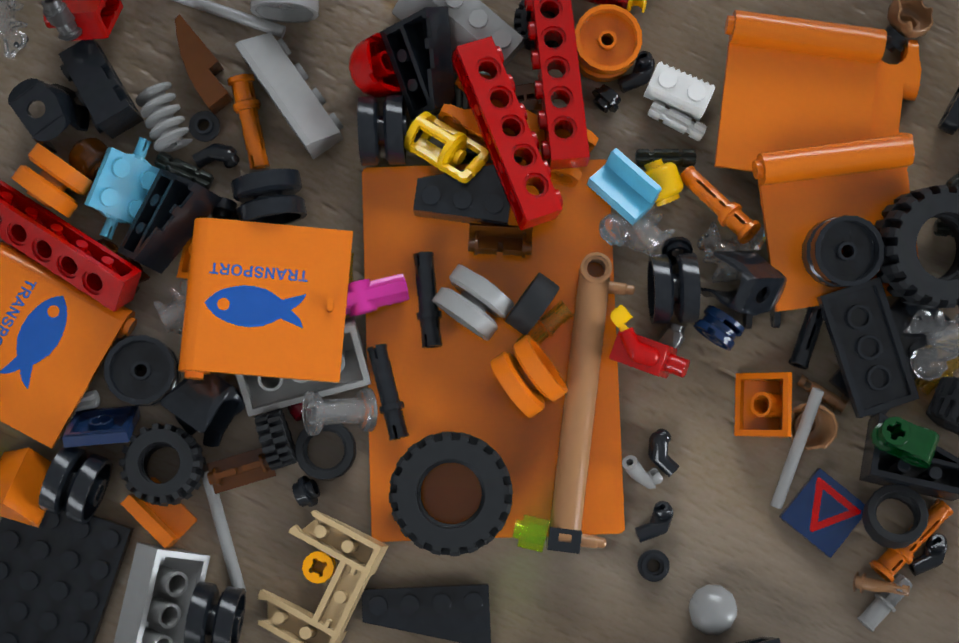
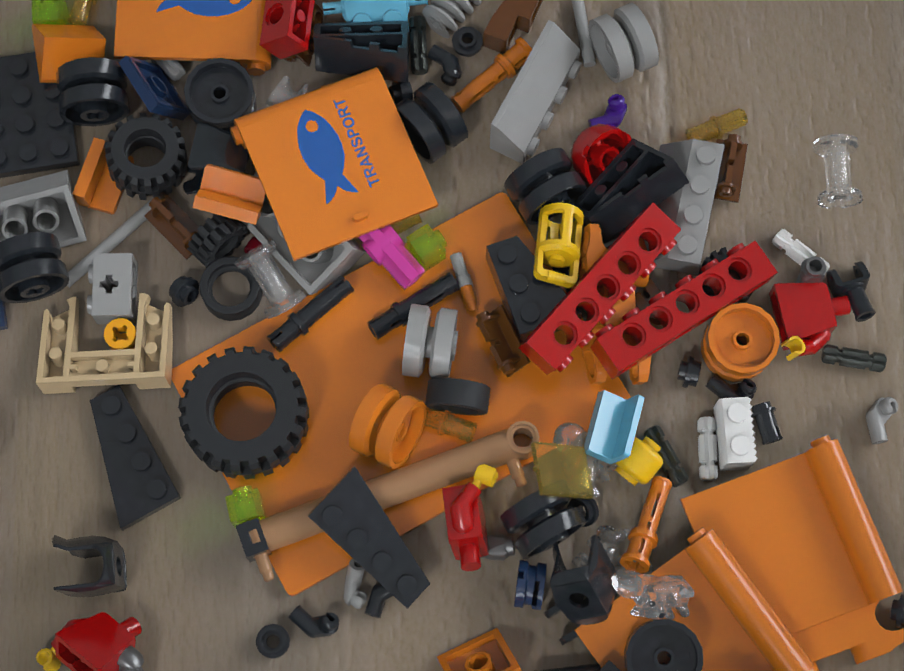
camera: 60 degrees right, 10 degrees down
(247, 408) = (230, 194): none -> orange panel
(260, 538) = (102, 274): none -> light grey brick
(343, 38) = (614, 112): none -> dark purple arm
(381, 260) = (427, 246): none -> clear neon green plate
(428, 245) = (464, 281): none -> light grey piece
(607, 443) = (365, 532): none -> black wing
(644, 250) = (562, 470): none -> clear yellow piece
(682, 60) = (766, 422): none -> black pin
(789, 226) = (654, 594): none -> clear animal

